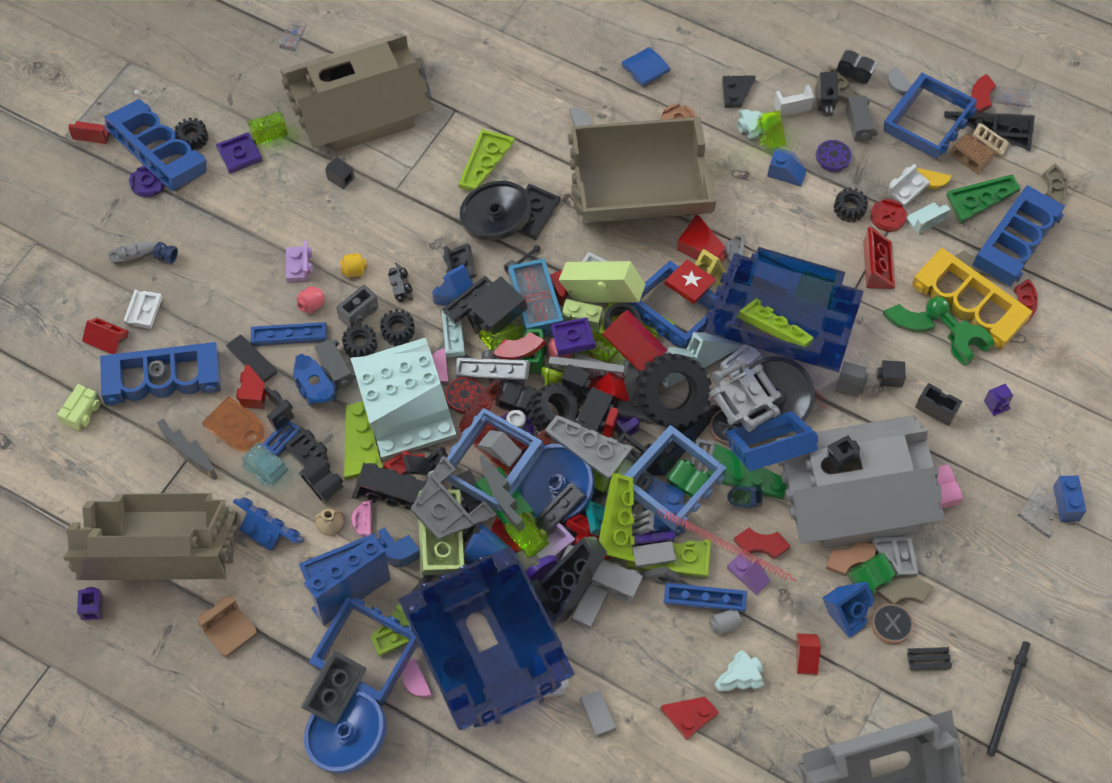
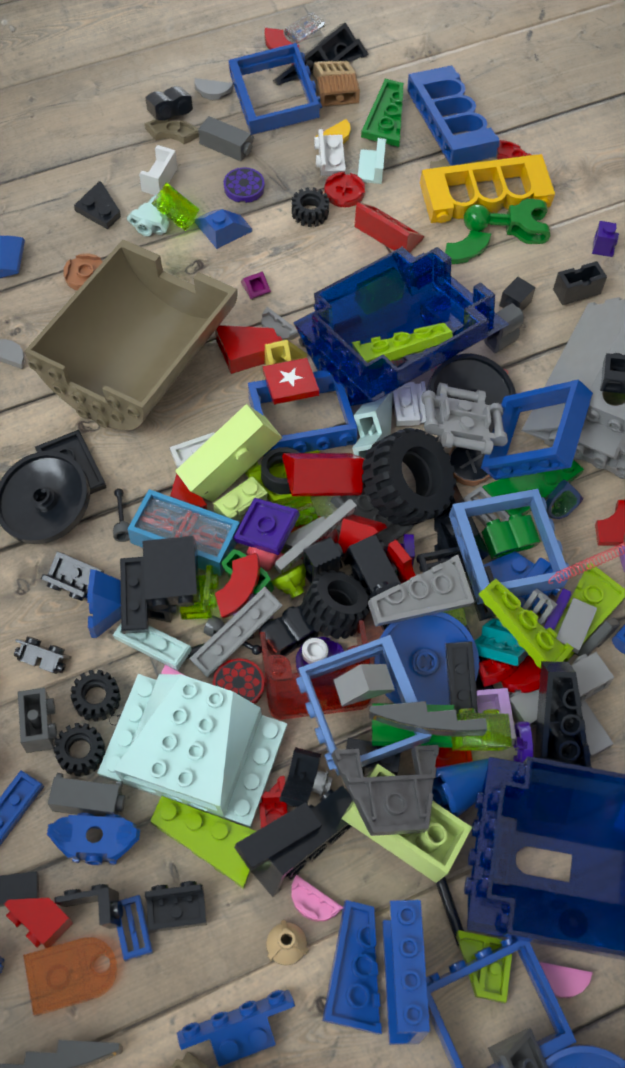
camera: 55 degrees left, 0 degrees up
(264, 464) = (154, 973): clear light blue brick -> none
(321, 479) = (230, 916): black brick -> none
(377, 466) = (277, 836): none -> black tile
(400, 552) = (390, 886): blue brick -> none
(756, 217) = (256, 285): none -> magenta slope
(827, 92) = (177, 136): black torso -> none
(1056, 183) = (415, 59): dark tan tile -> none

